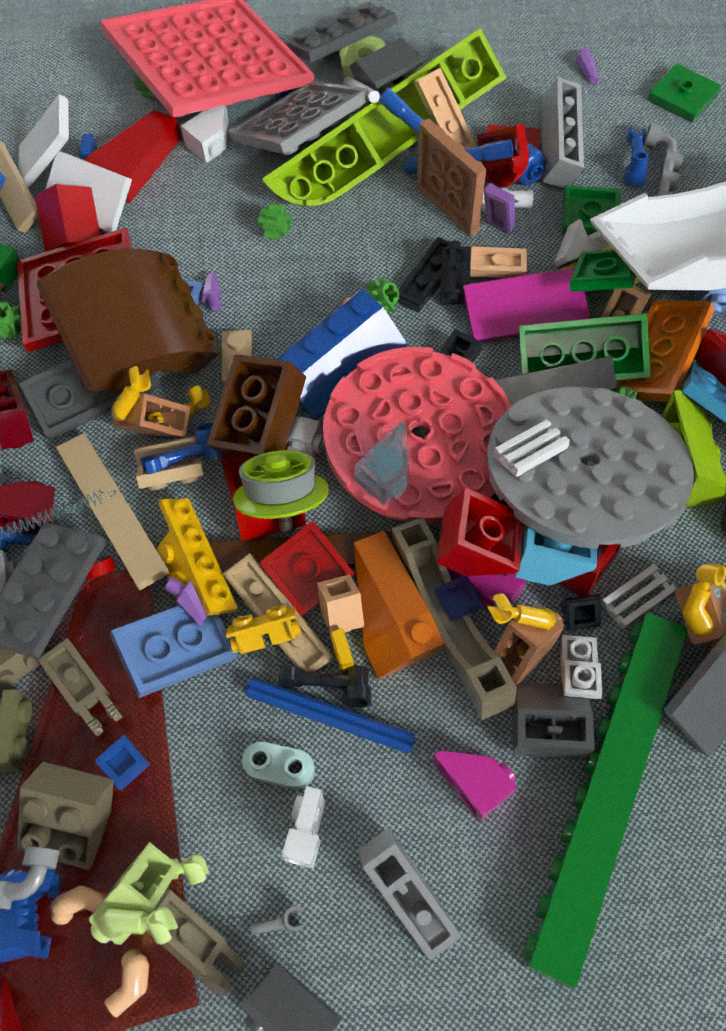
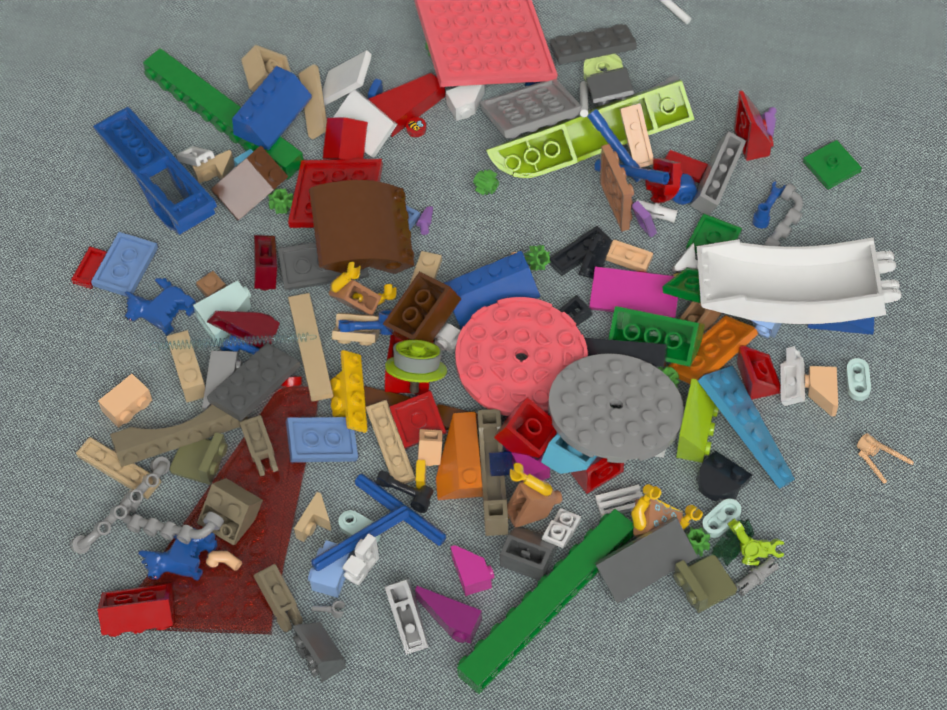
camera: 20 degrees right, 5 degrees down
(122, 762) = (270, 494): blue plate -> none
(134, 982) = (240, 606): light nougat arm -> none
(137, 893) = (259, 557): yellowish green torso -> none
(157, 182) = (416, 127): none -> red tile
(187, 599) = (338, 414): medium lavender bar -> none
(202, 766) = (313, 515): none -> tan slope
(249, 630) = (369, 445): yellow hinge -> none
(258, 854) = (331, 578): none -> light blue brick
(284, 799) = (349, 544): none -> blue axle
(386, 466) = (486, 370): clear light blue slope -> none
(483, 870) = (454, 617): none -> magenta slope
(527, 444) = (577, 383): white tile -> none
(580, 61) = (752, 129): none -> red slope
(582, 612) = (579, 499): black slope -> none

